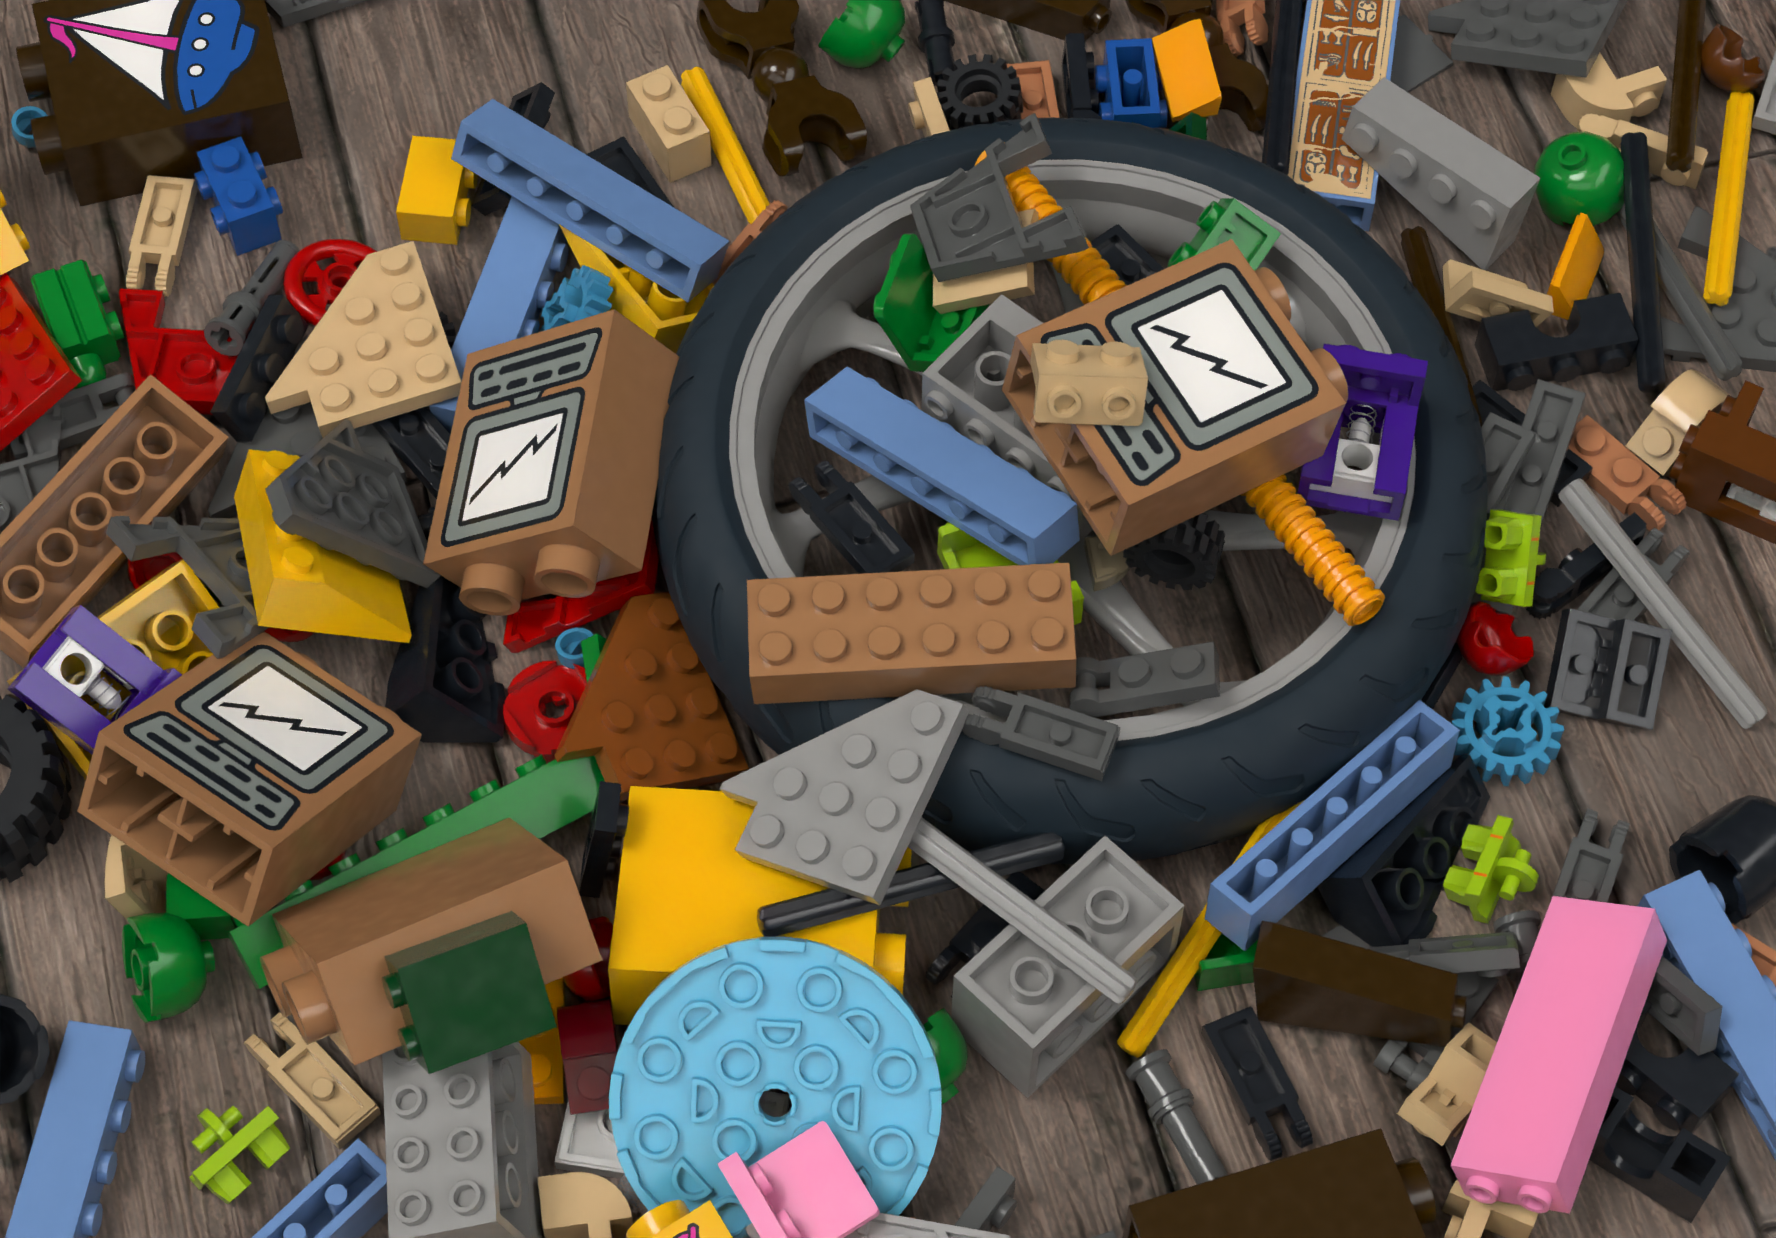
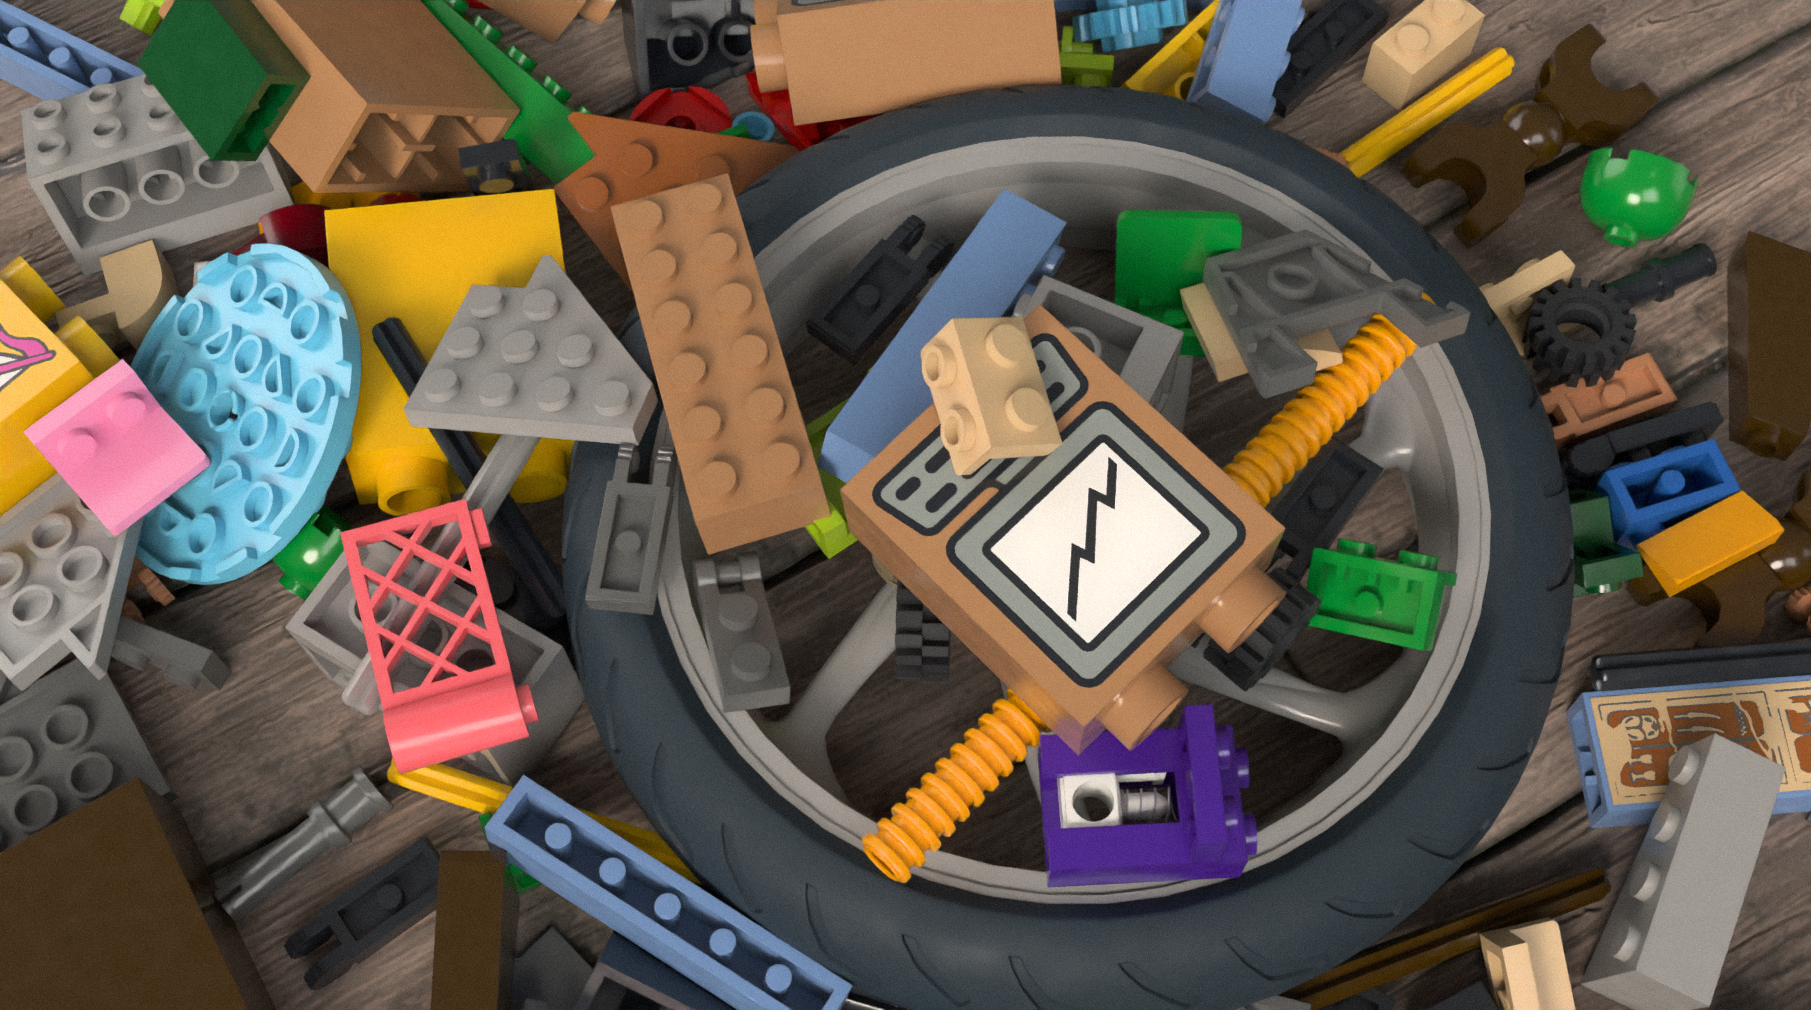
camera: 80 degrees right, 5 degrees up
(1158, 898) = (459, 712): none -> coral piece

